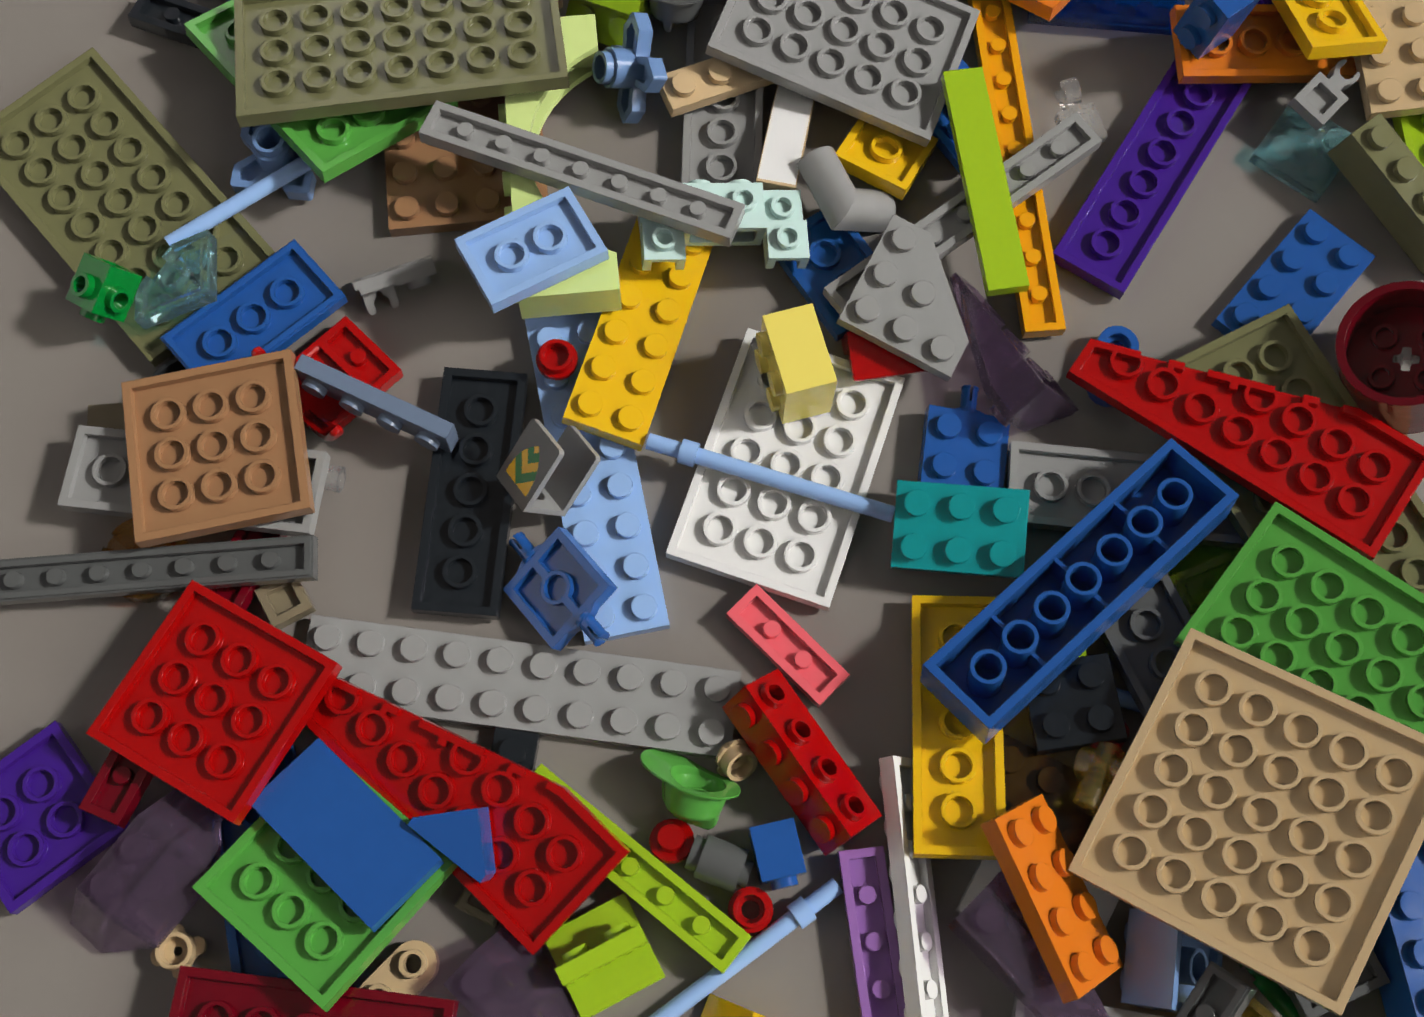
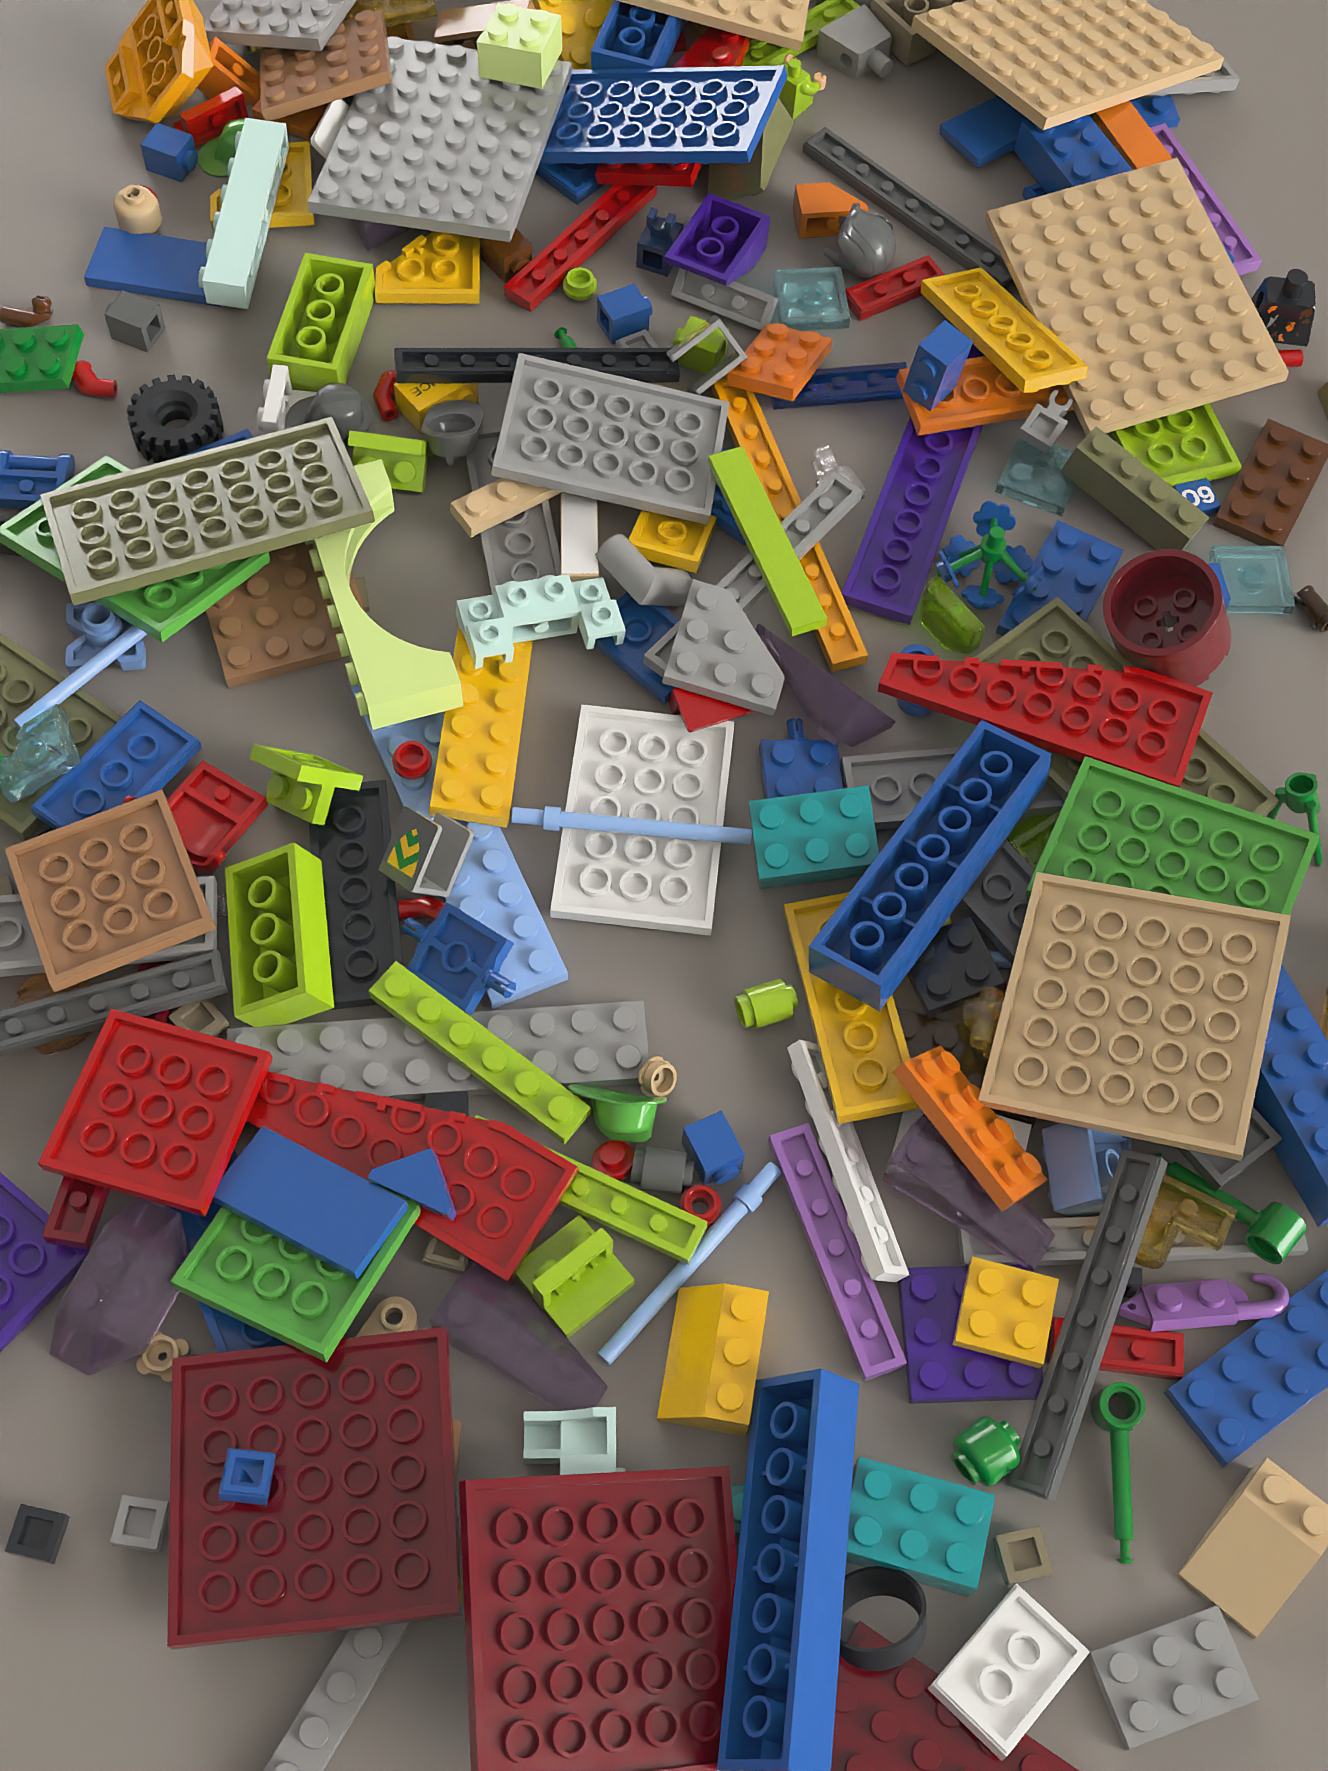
camera: 15 degrees left, 10 degrees down
(379, 530) = (278, 937): none -> lime brick
(389, 410) = (249, 826): sand blue plate -> none
(413, 274) = (256, 713): light grey plate -> none
(441, 360) = (303, 781): none -> lime bracket
(531, 249) = (372, 660): light blue plate -> none
(542, 523) = (420, 907): none -> red arm
(559, 698) = (480, 1052): none -> lime plate
(584, 172) = (402, 590): light grey plate -> none
(631, 68) = (425, 501): medium blue plant -> none
(787, 645) = (680, 970): coral plate -> none
(796, 364) = (634, 720): light yellow brick -> none
(801, 761) = (717, 1063): red brick -> none
(868, 703) = (766, 1004): none -> lime brick
(1164, 302) = (949, 619): none -> clear neon green slope
(1230, 238) = (993, 550): none -> blue plant

